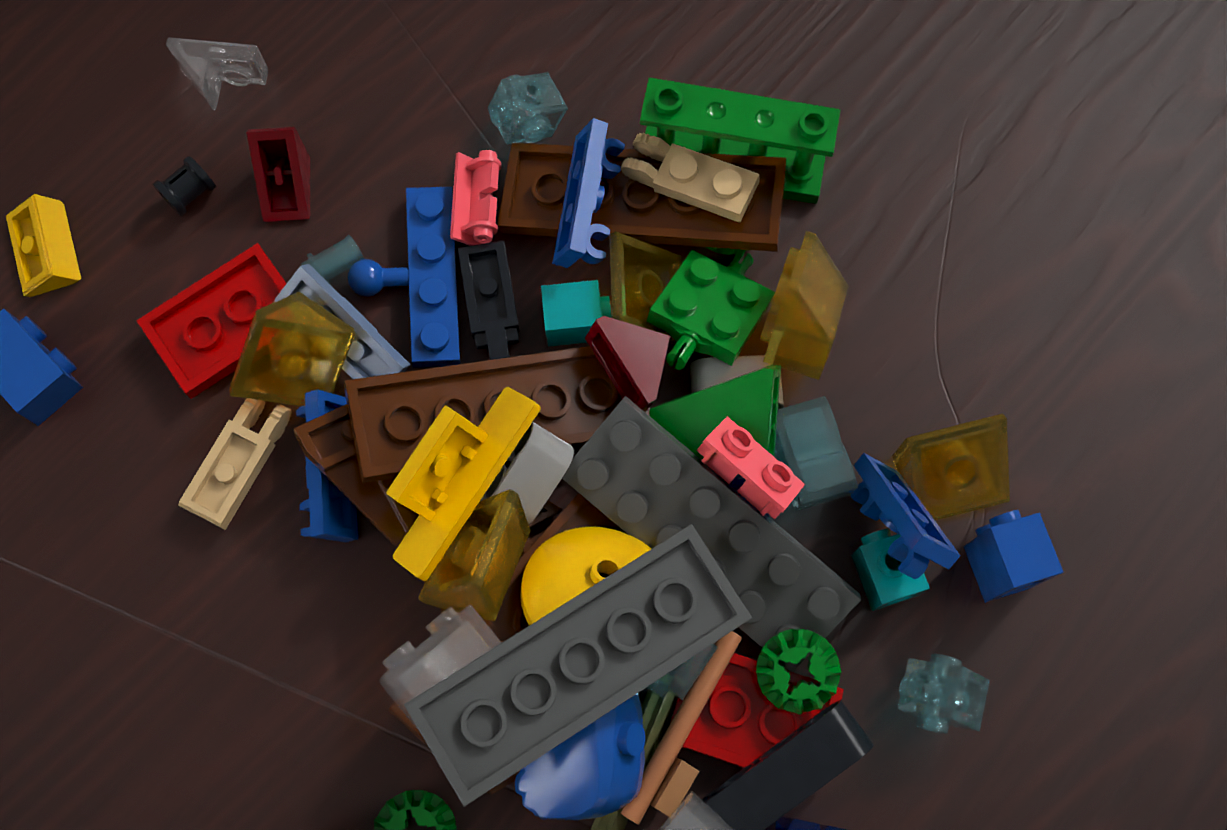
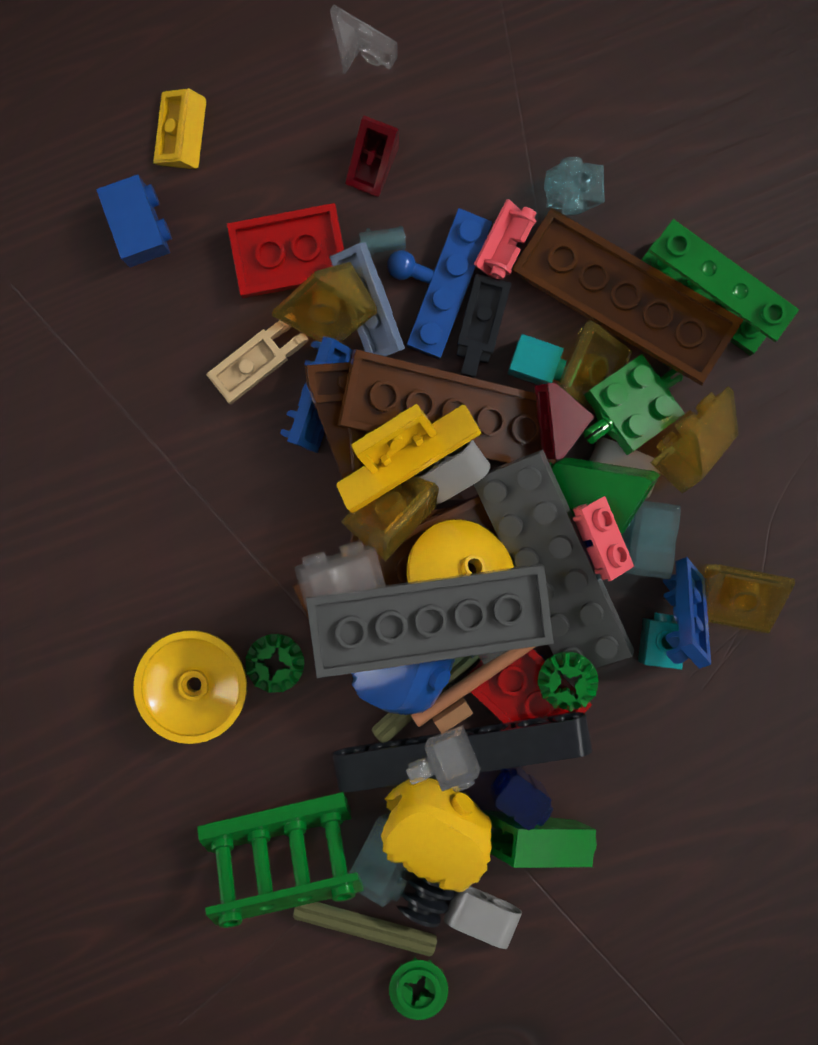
camera: 20 degrees right, 15 degrees up
(184, 185) = (299, 130): black bush -> none
(586, 195) = (585, 280): blue plate -> none
(693, 177) = (669, 304): tan hinge -> none
(943, 694) = (654, 738): clear light blue brick -> none
(1012, 555) = (748, 674): blue brick -> none

